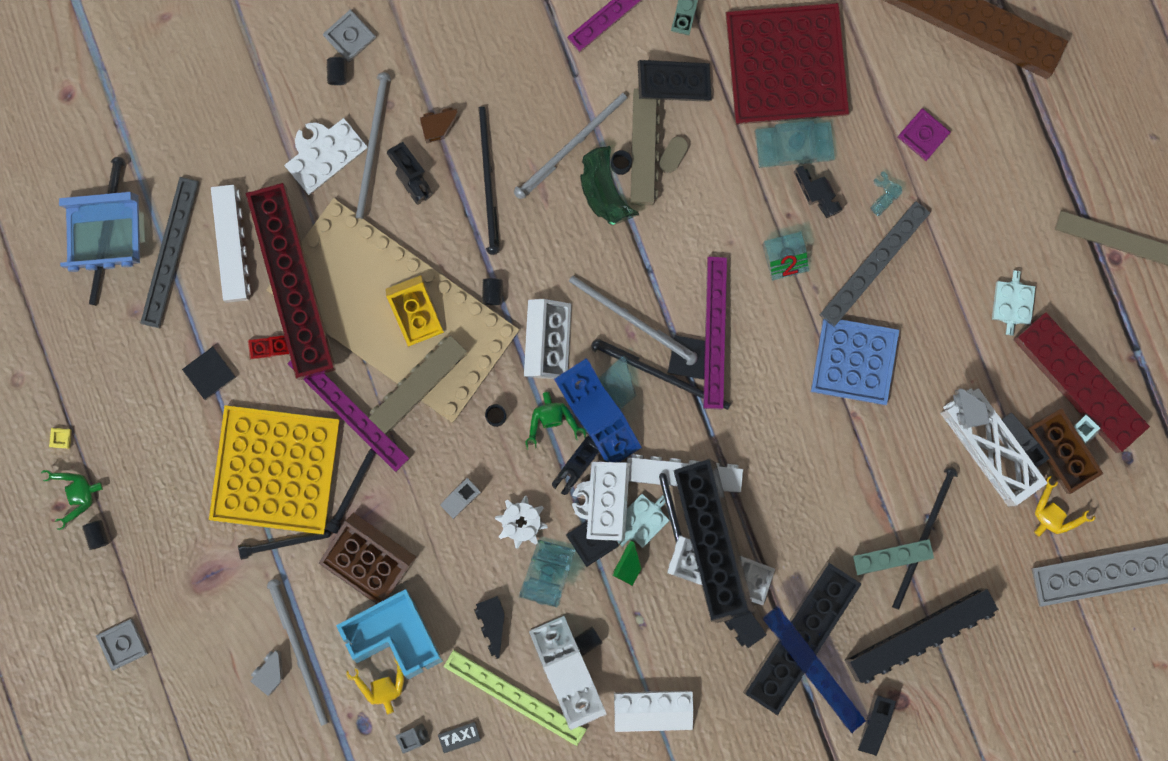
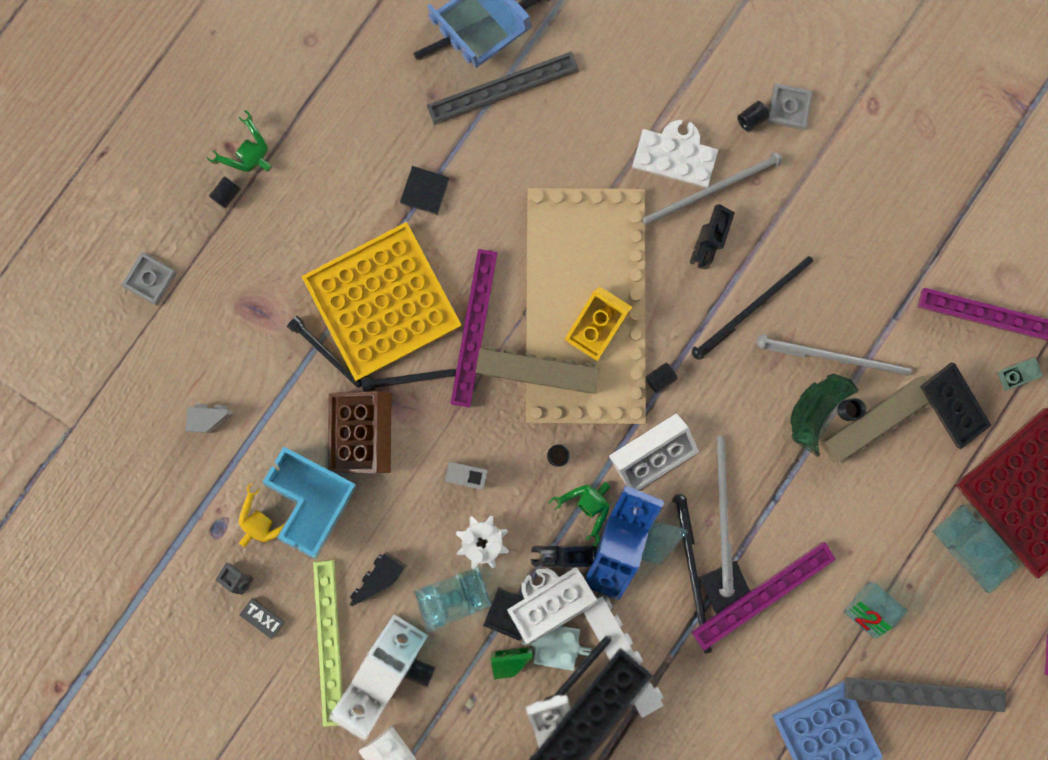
camera: 60 degrees right, 0 degrees up
(60, 438) = (286, 108): light yellow tile -> none
(230, 244) = (545, 130): white brick -> none
(267, 347) = (481, 224): red slope -> none
(287, 624) = (283, 369): light grey bar -> none
(290, 281) = (549, 201): dark red brick -> none
(438, 125) = (769, 232): reddish brown slope -> none
(673, 154) = (889, 449): dark tan tile -> none
(818, 191) = (951, 598): black plate -> none
(892, 190) = (997, 664): clear light blue bar -> none

